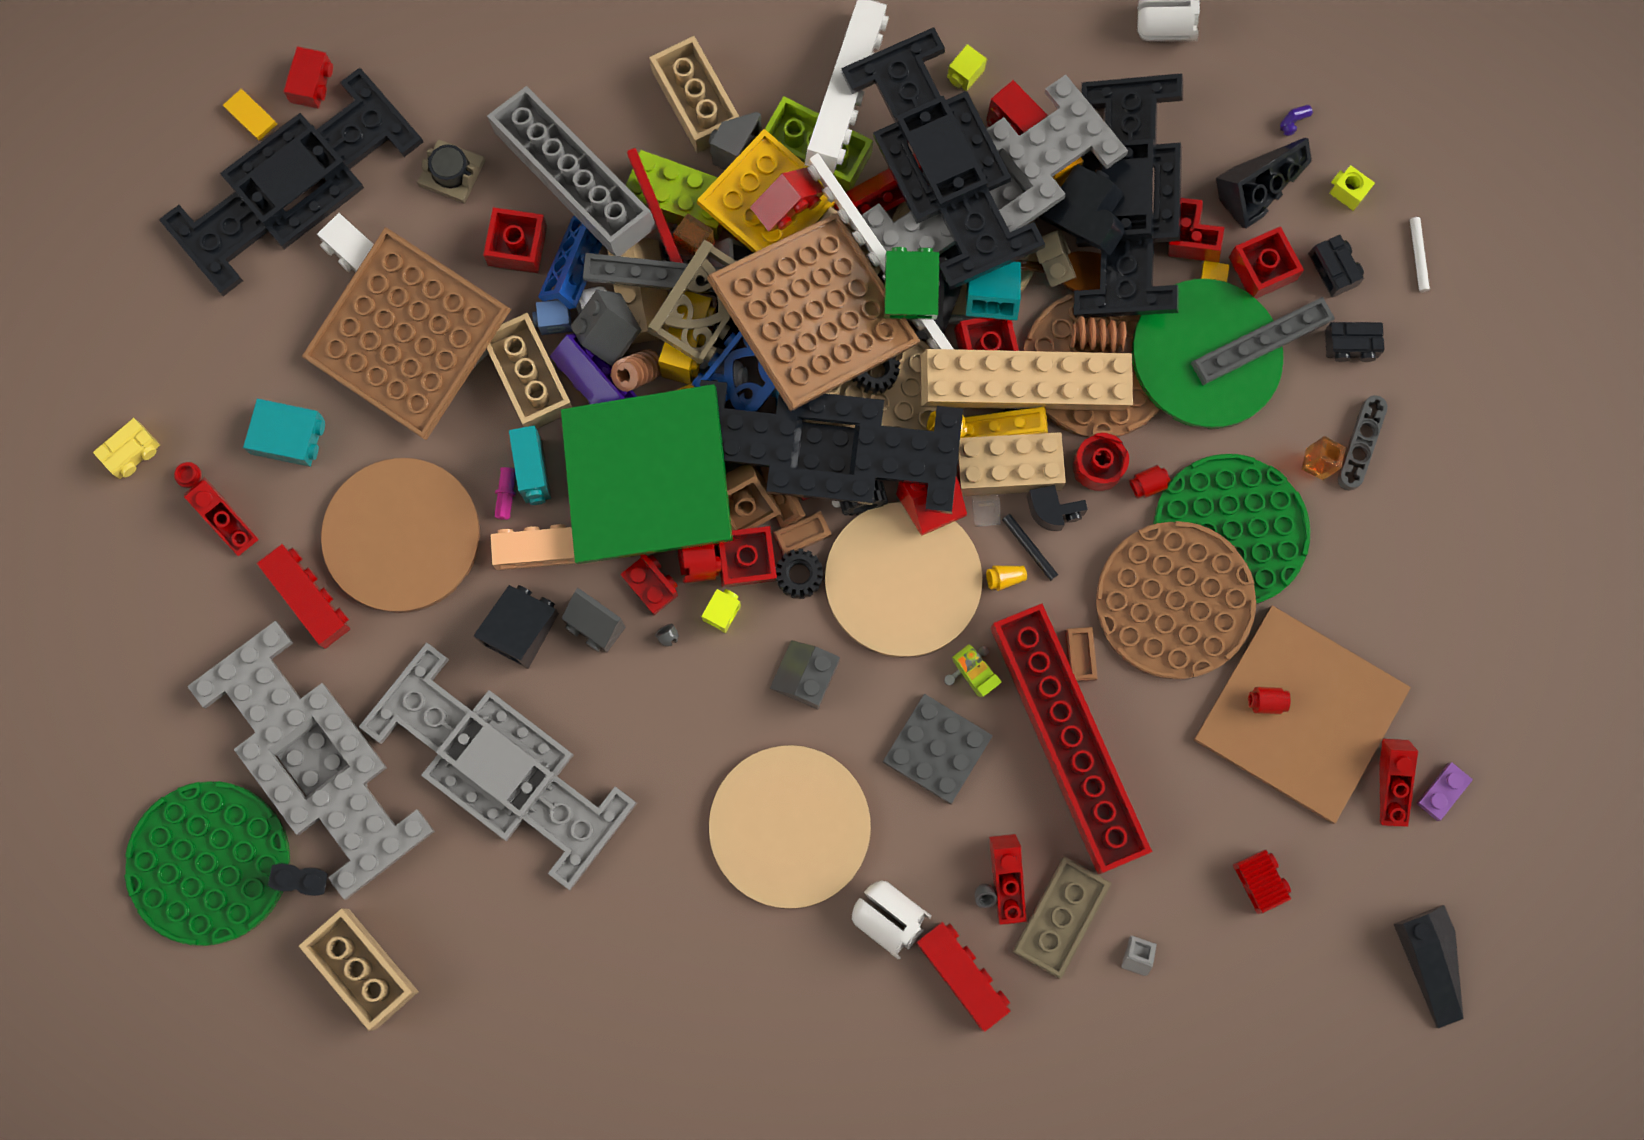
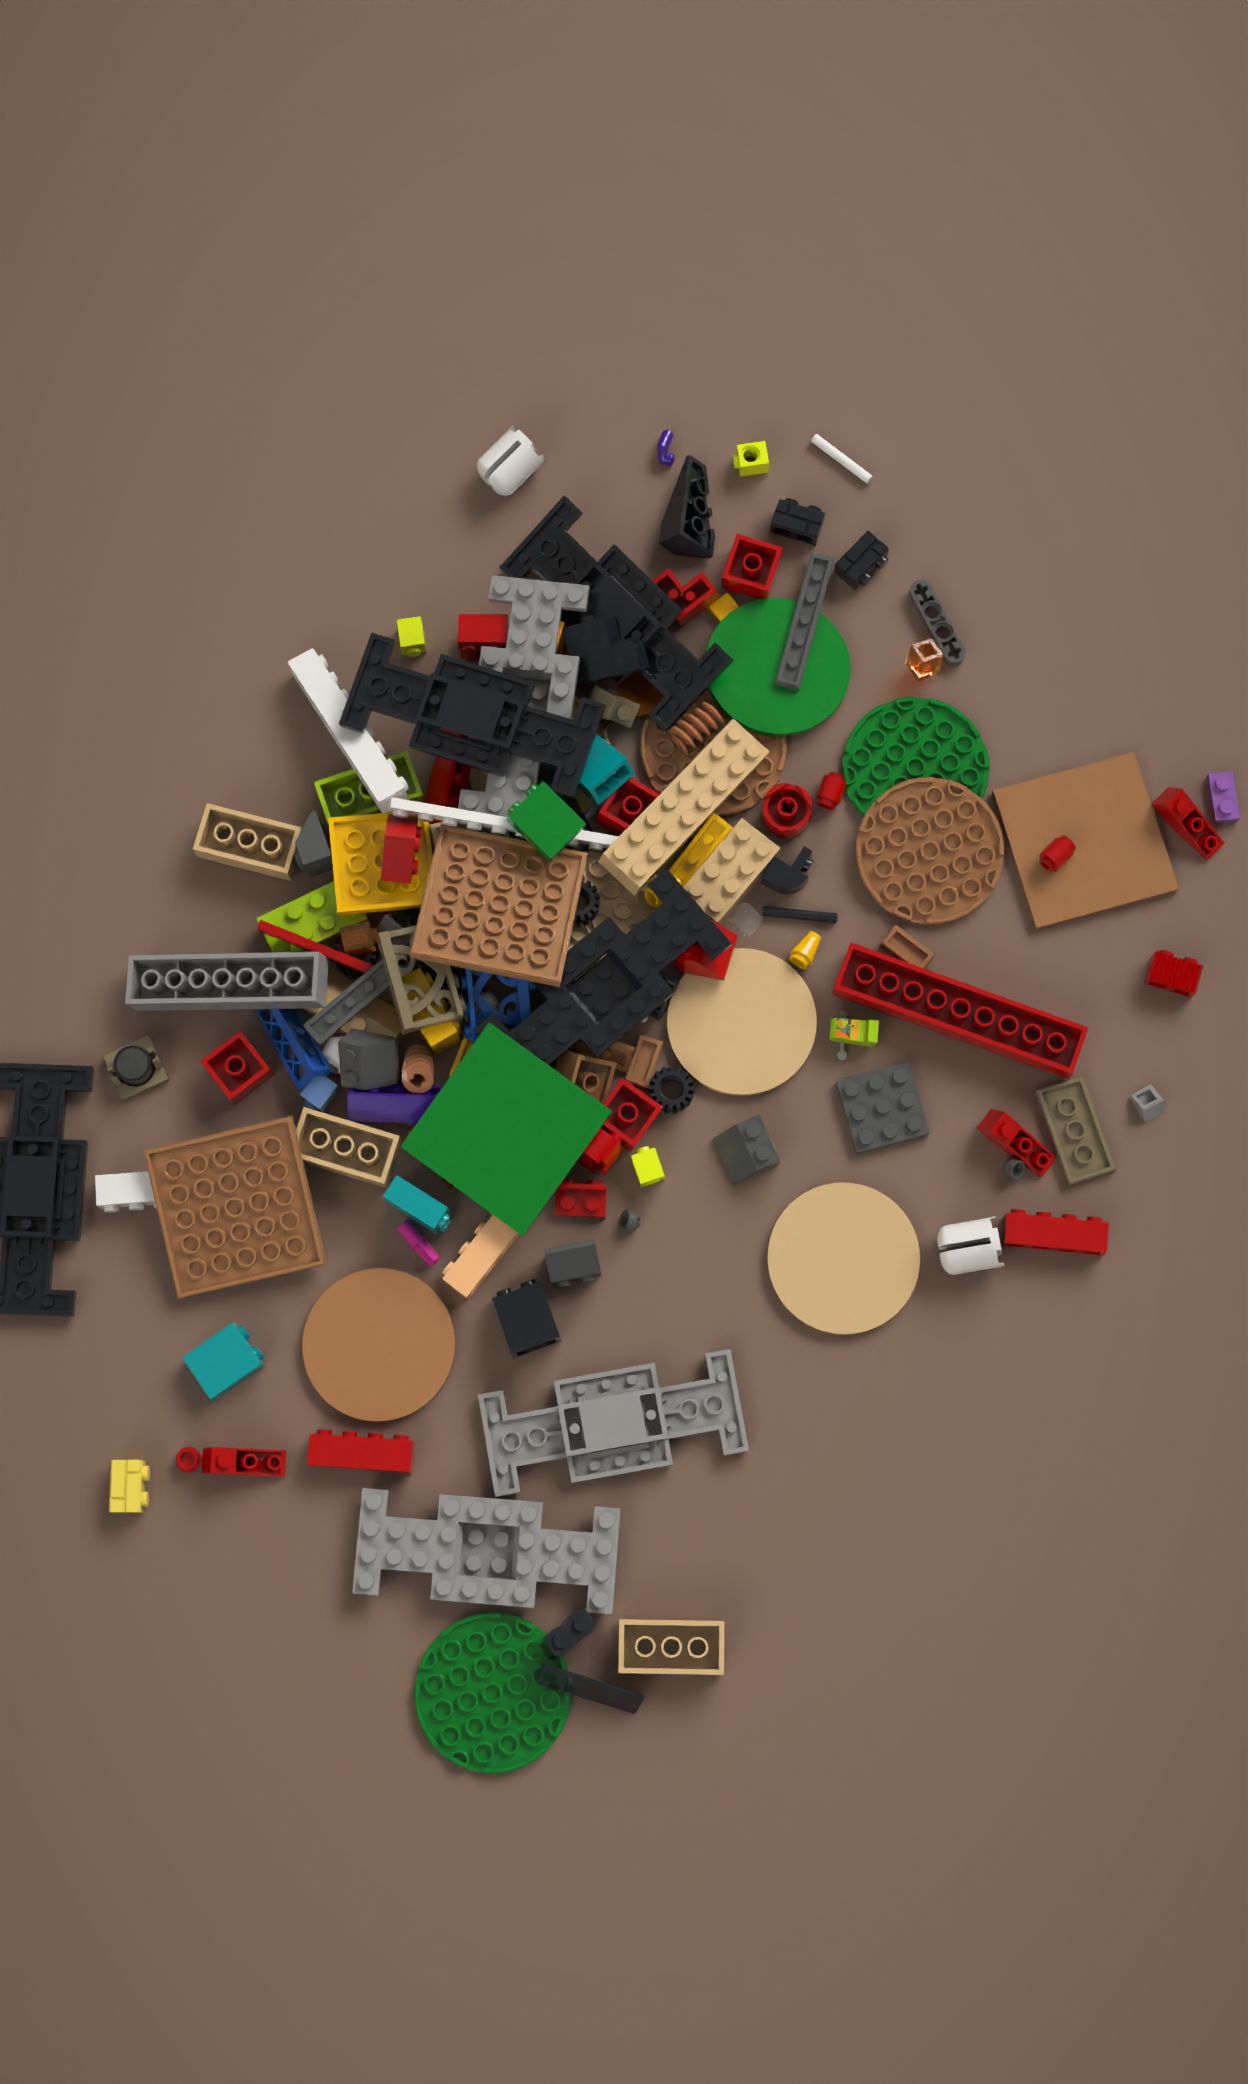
camera: 40 degrees left, 0 degrees up
(272, 934) = (589, 1688): none -> black slope

